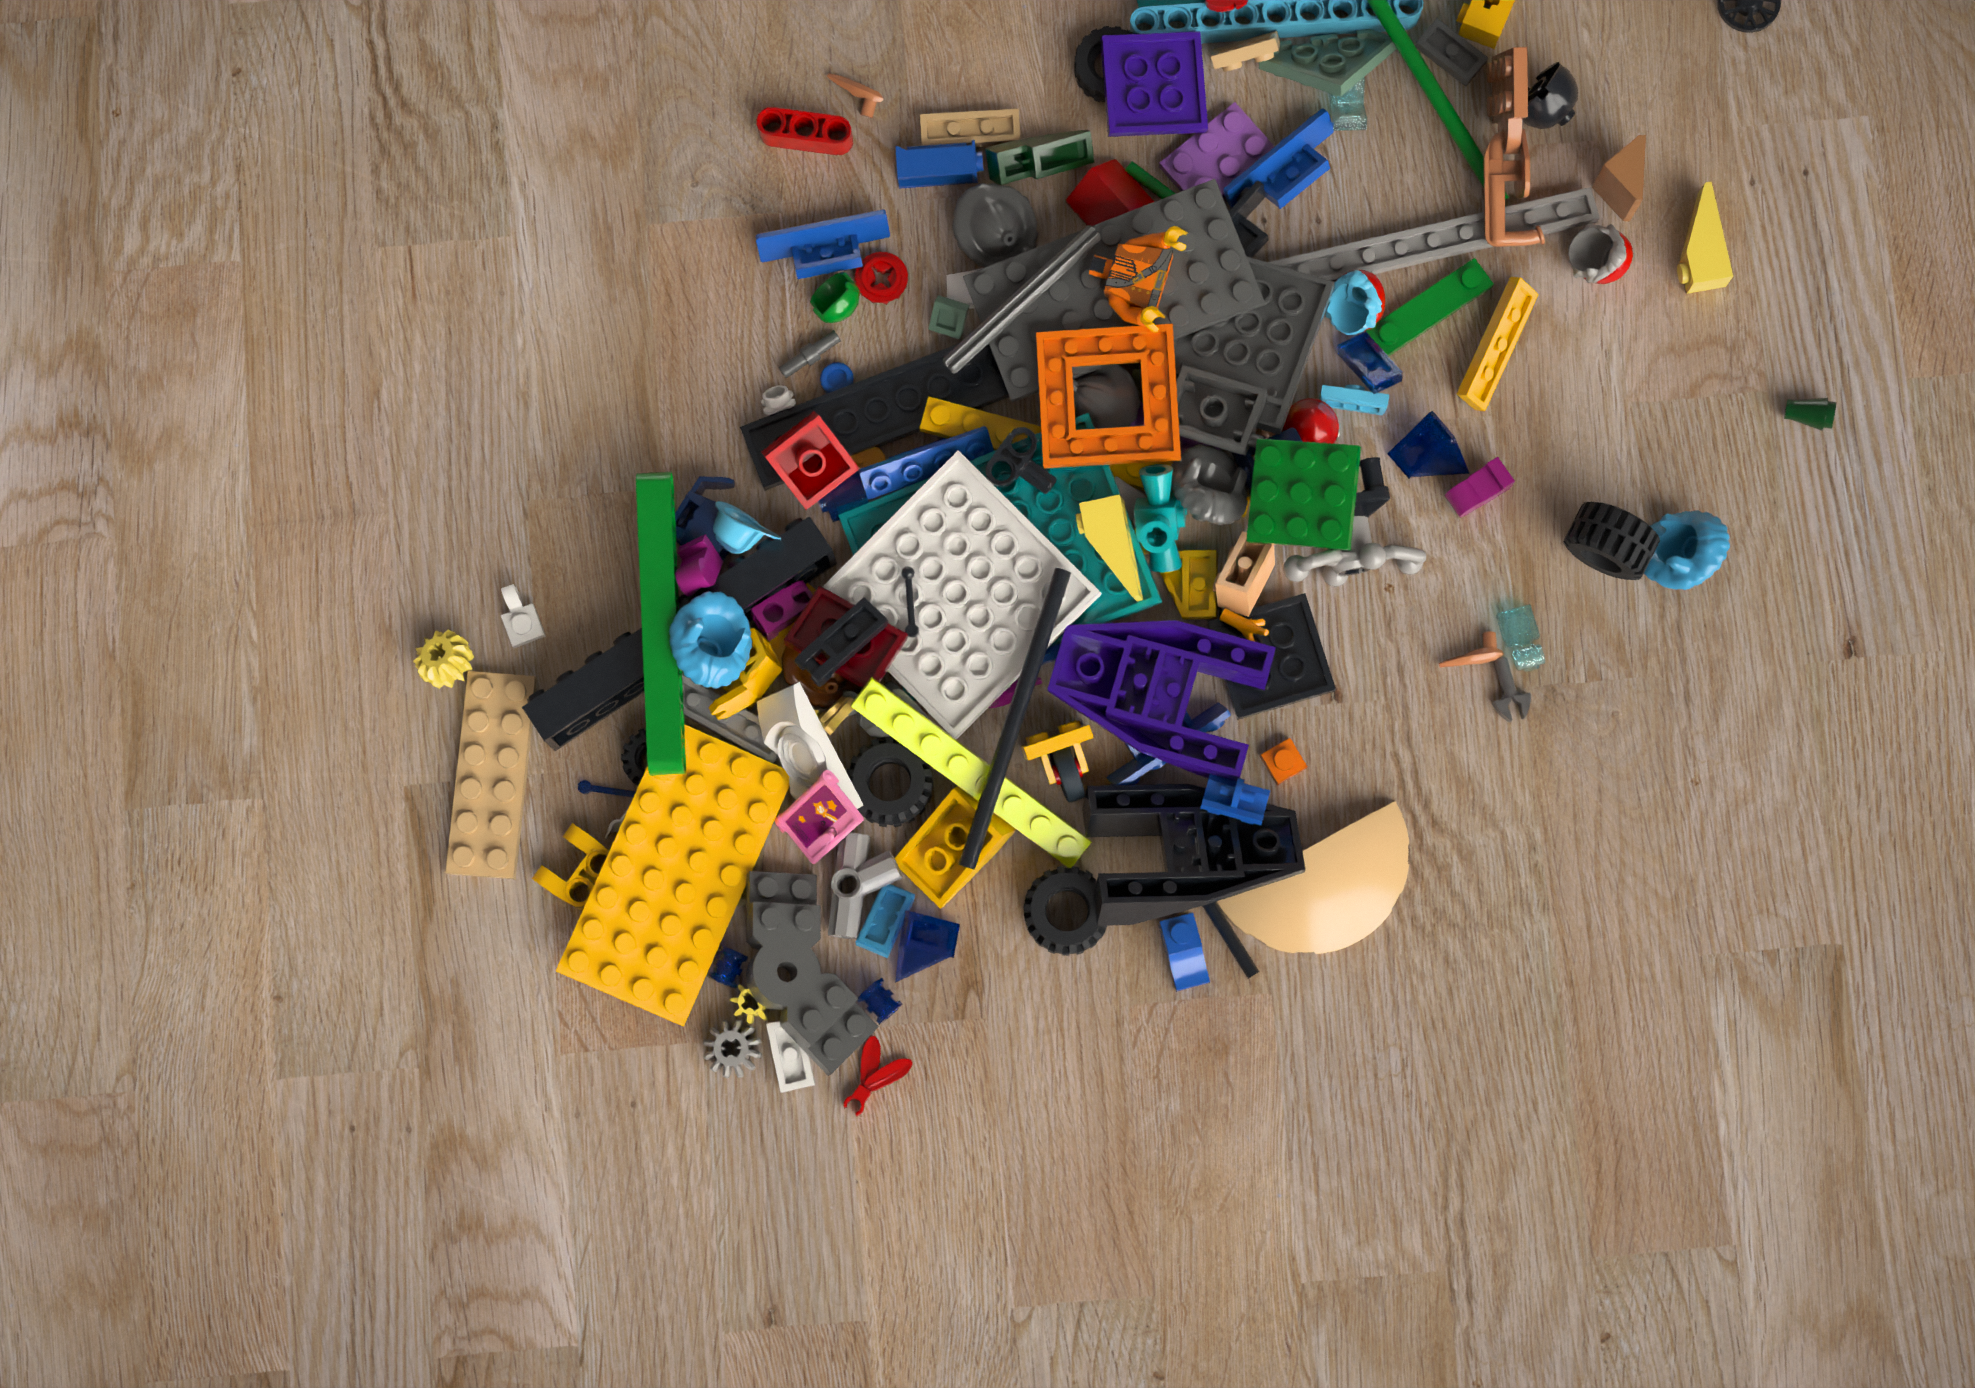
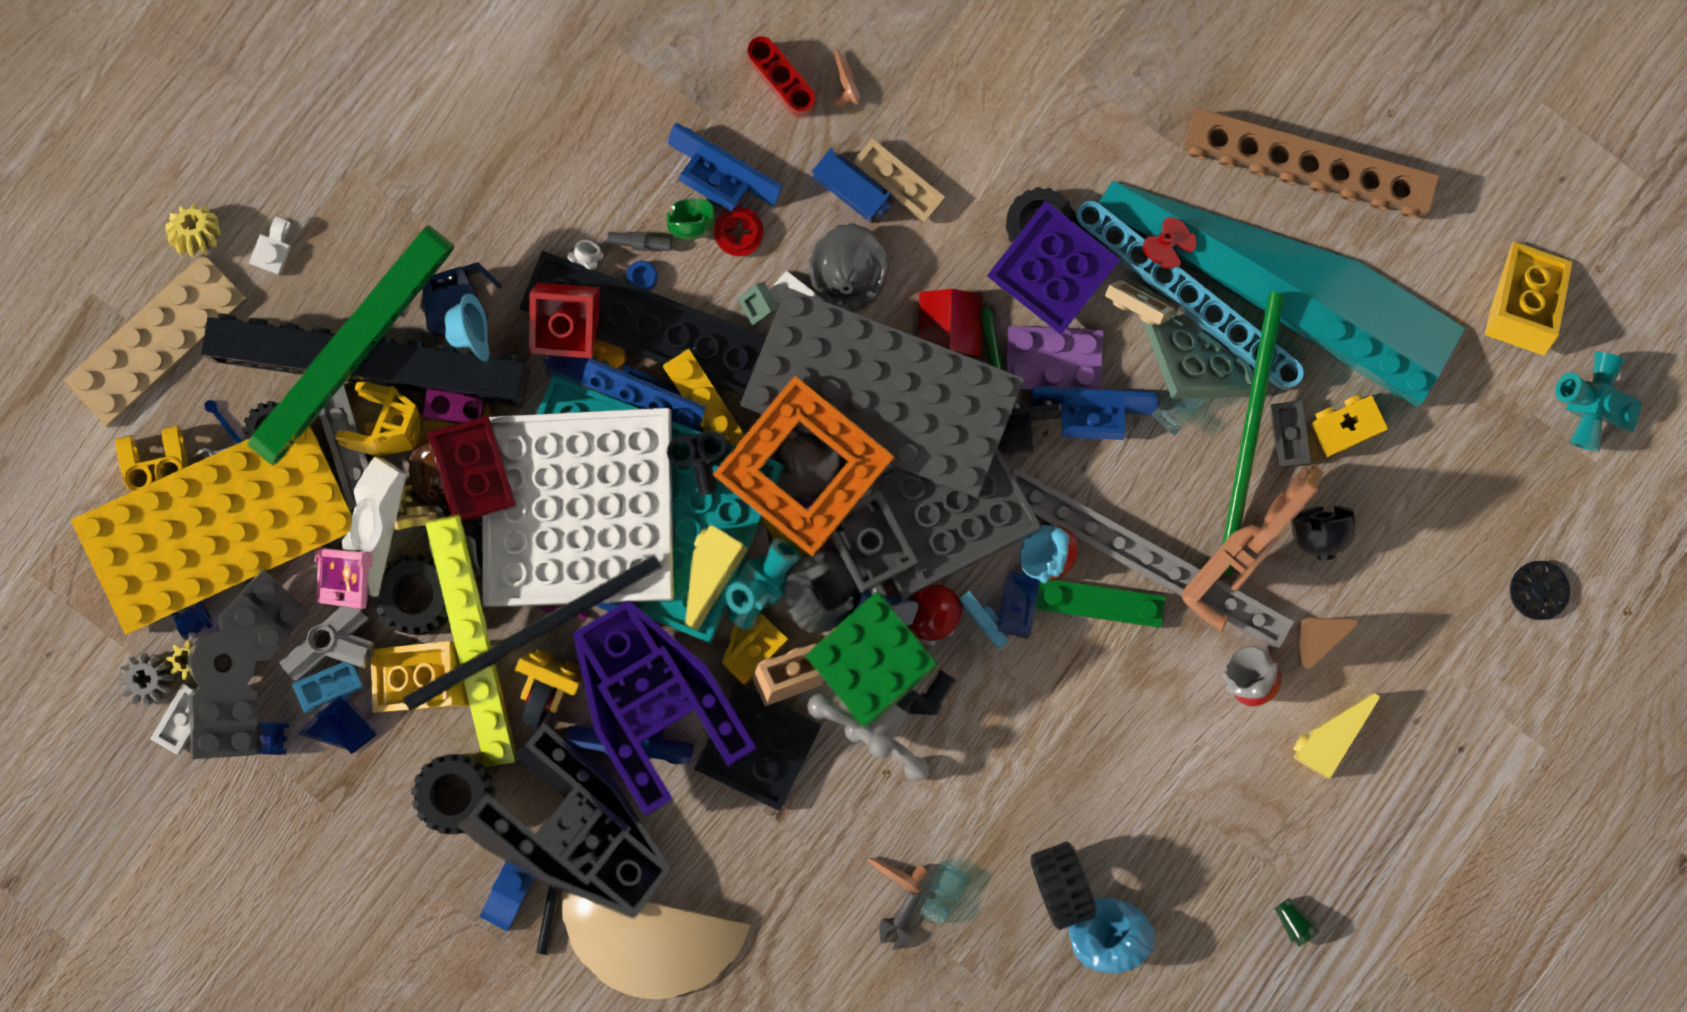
camera: 40 degrees right, 5 degrees up
(698, 566) = (415, 328): magenta leg -> none
(711, 639) = (372, 390): dark azure piece -> none
(842, 641) = (463, 471): black plate -> none
(874, 1078) = (222, 784): red piece -> none
(911, 629) = (523, 504): black hinge -> none
(1022, 299) = (808, 342): dark grey axle -> none
(1039, 156) = (927, 245): dark green slope -> none
(1139, 275) = (900, 402): torso -> none
(1235, 799) = (631, 826): blue hips -> none
(1244, 625) = (757, 711): light orange bar -> none
(1283, 761) = (699, 827): orange plate -> none
(1429, 450) = (1001, 704): clear blue slope -> none
(1480, 488) = (1011, 762): magenta leg -> none
(1497, 344) = (1122, 672): yellow plate -> none

